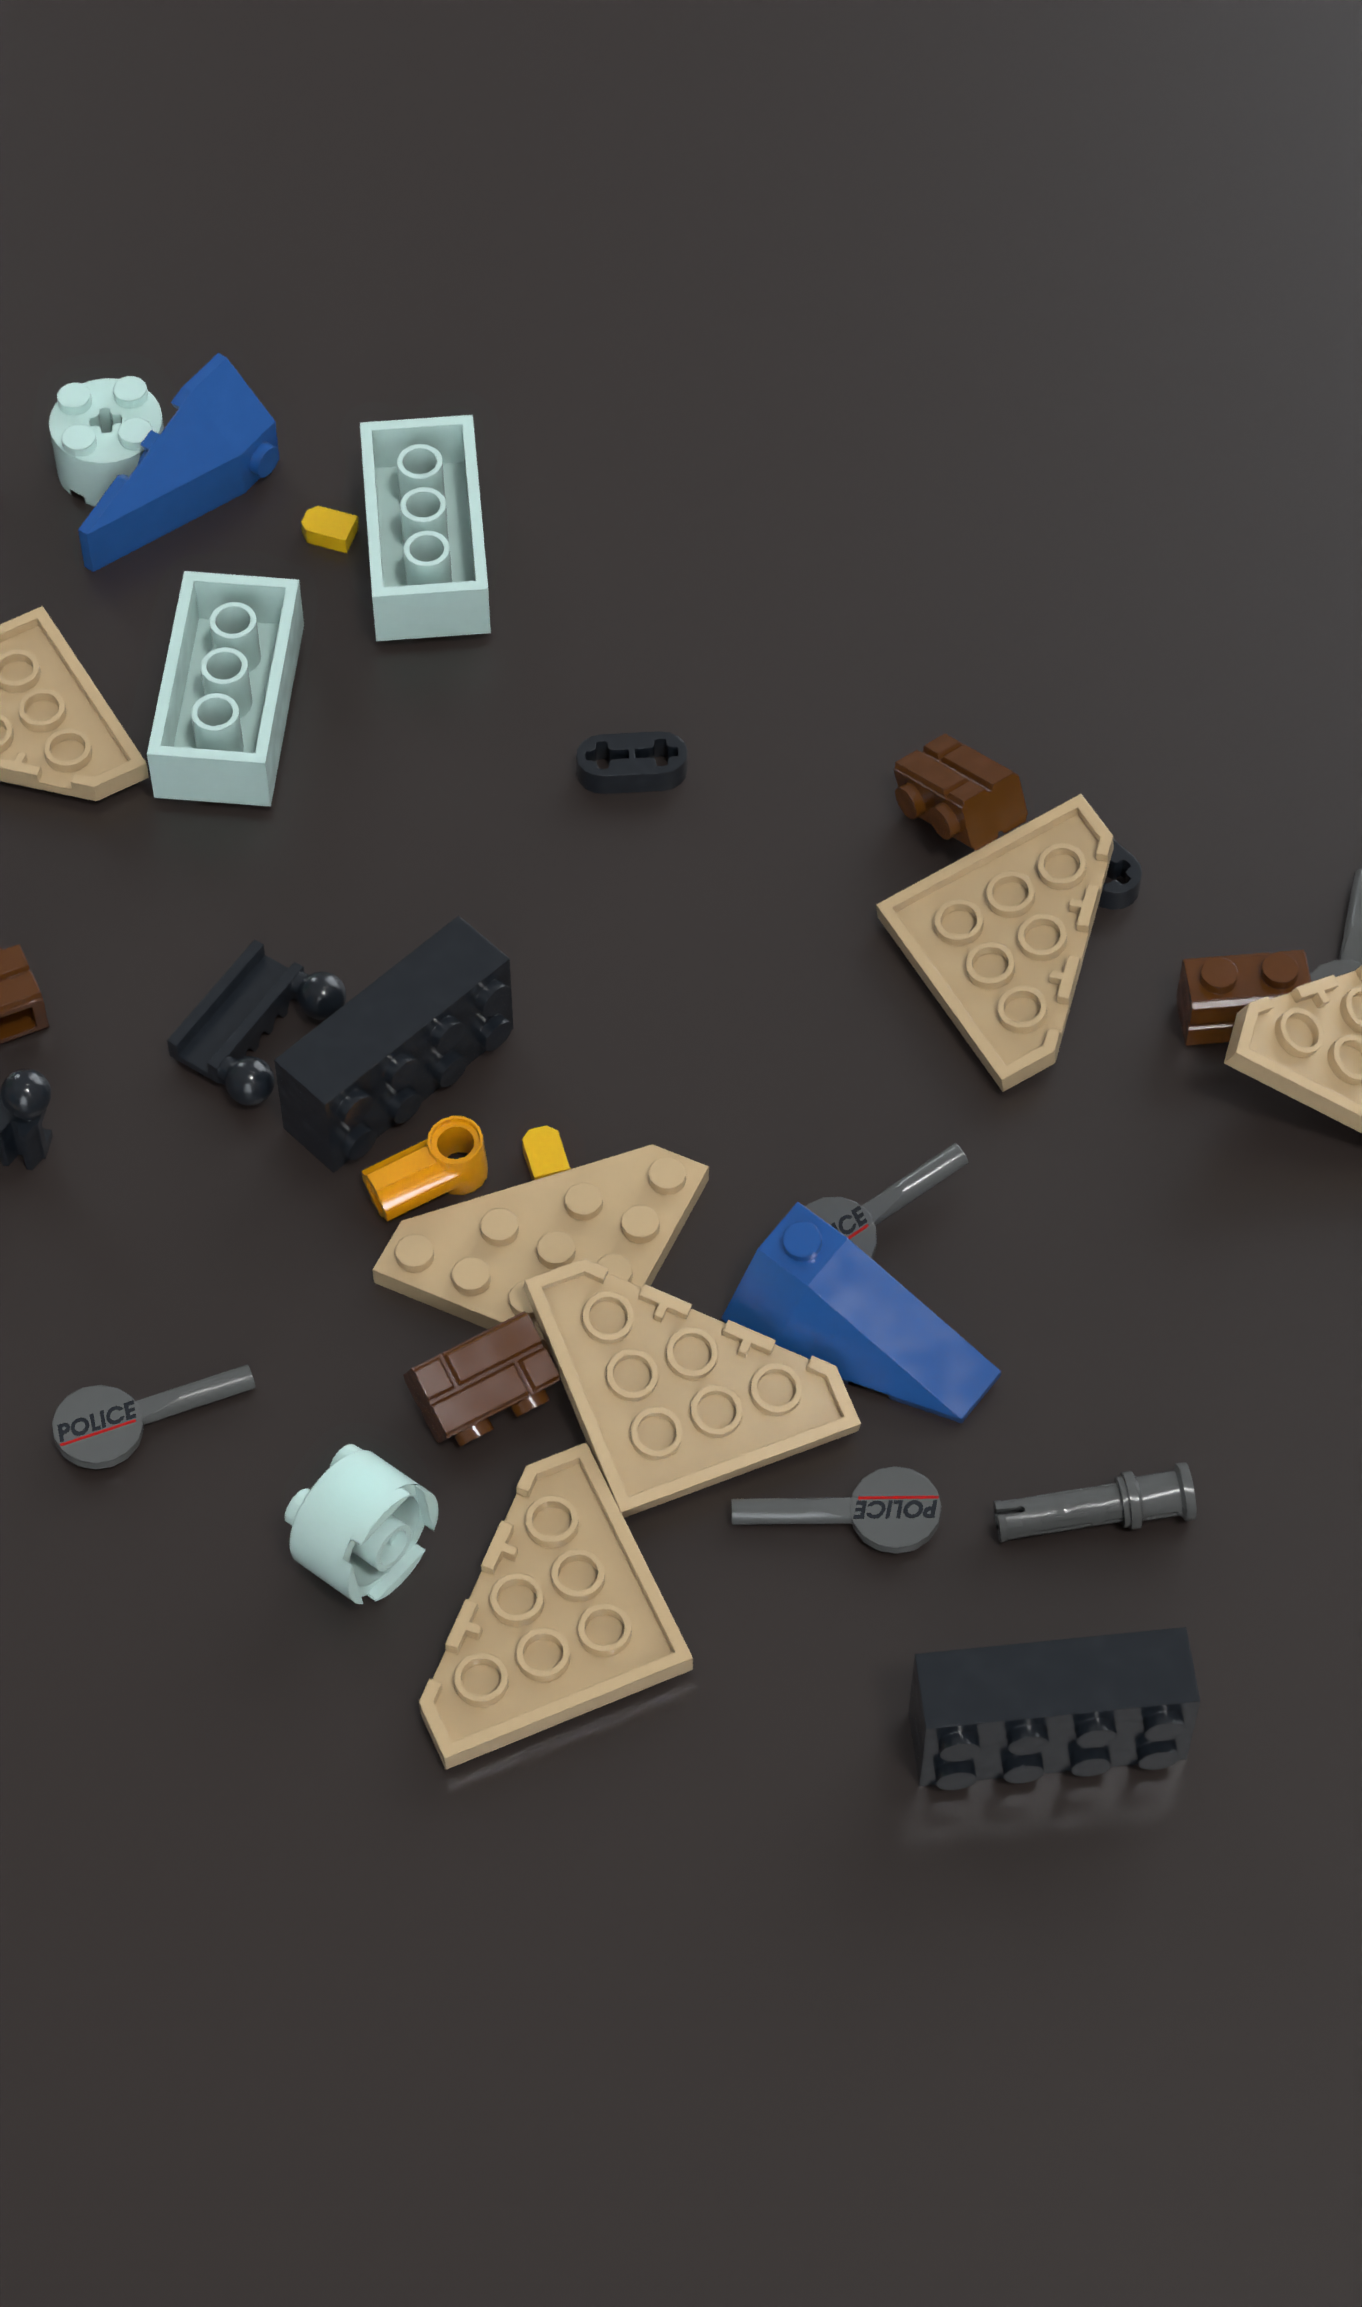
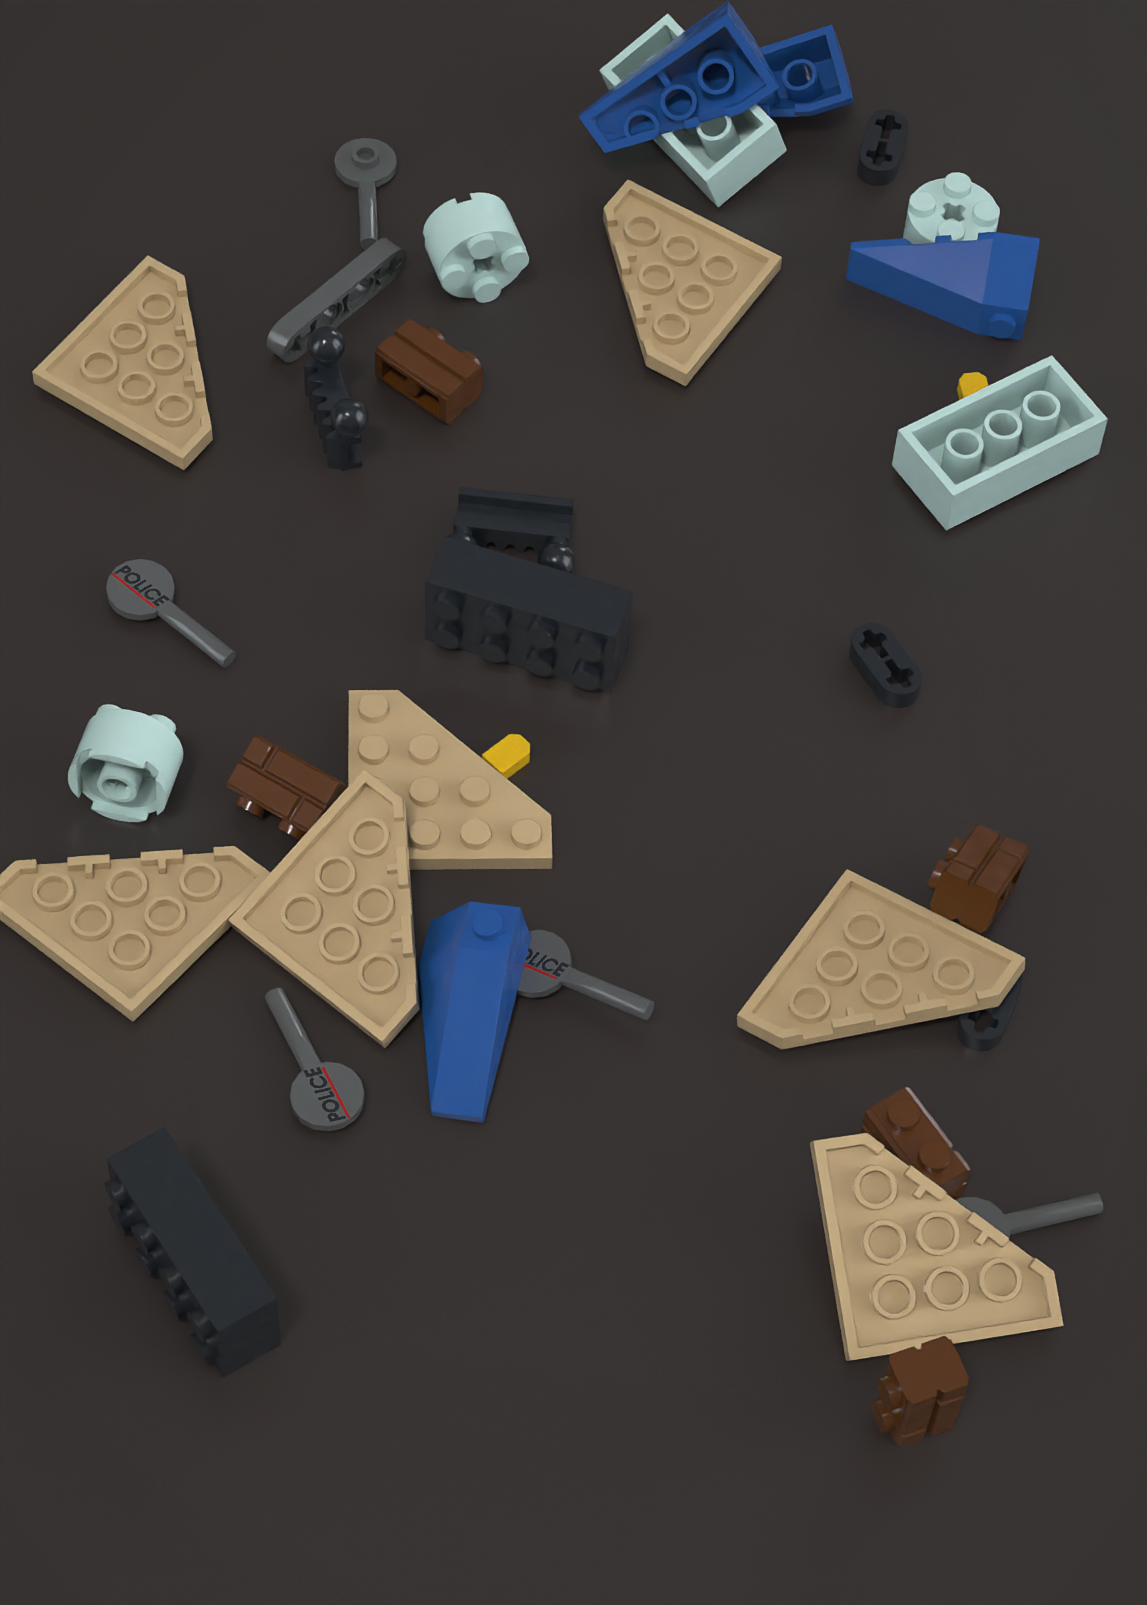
camera: 60 degrees right, 0 degrees up
(226, 689) = (776, 388): light aqua brick -> none
(426, 1172) = (448, 687): light orange piece -> none
(1126, 1501) = (412, 1245): dark grey pin -> none

